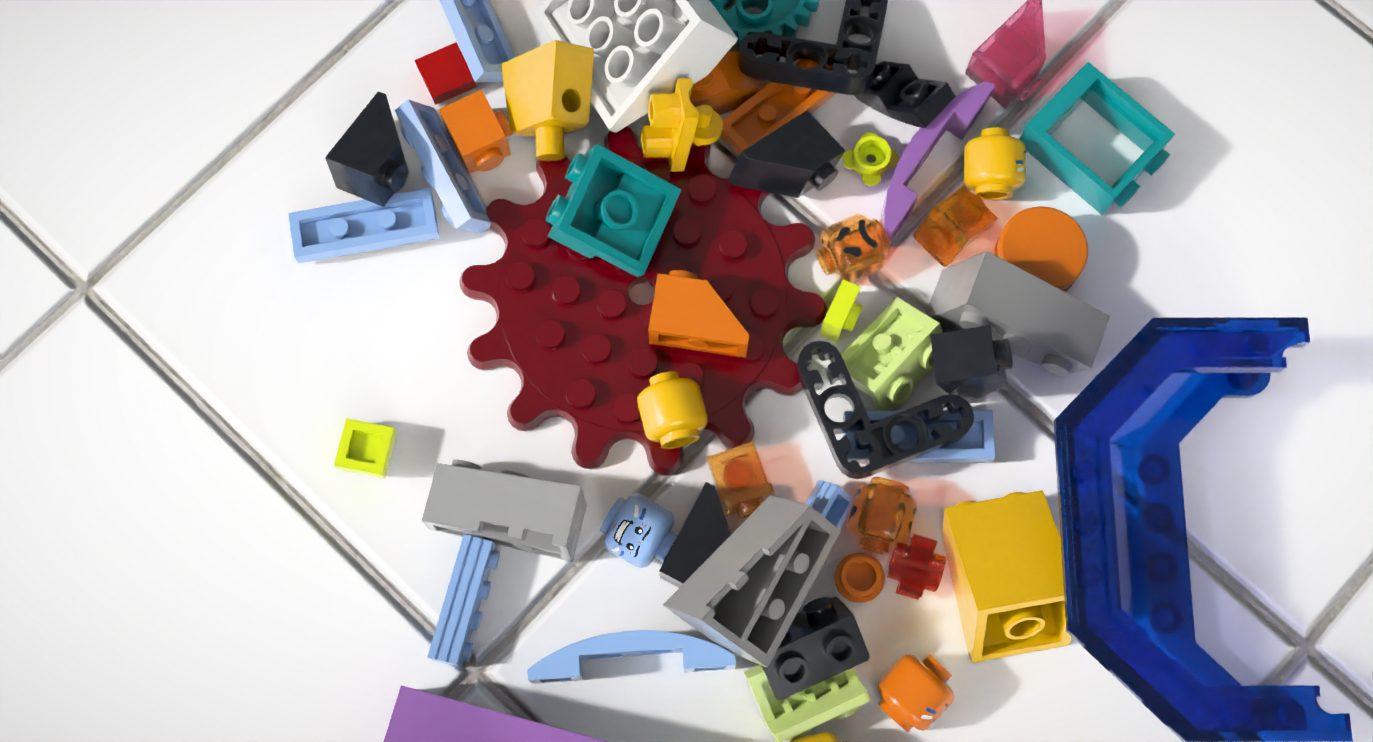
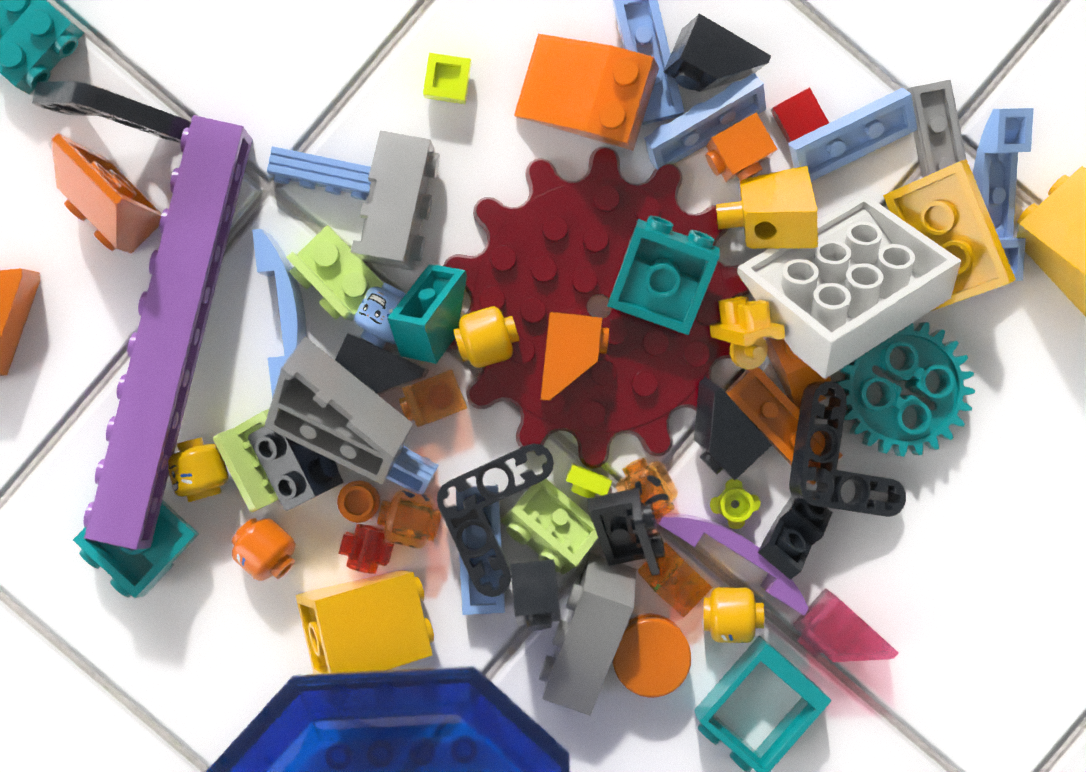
camera: 90 degrees right, 15 degrees up
(395, 289) = (587, 89): none -> orange slope
(586, 591) = (334, 273): none -> yellowish green bracket
(641, 475) = (429, 313): none -> teal slope
(897, 263) = (626, 528): none -> black bracket

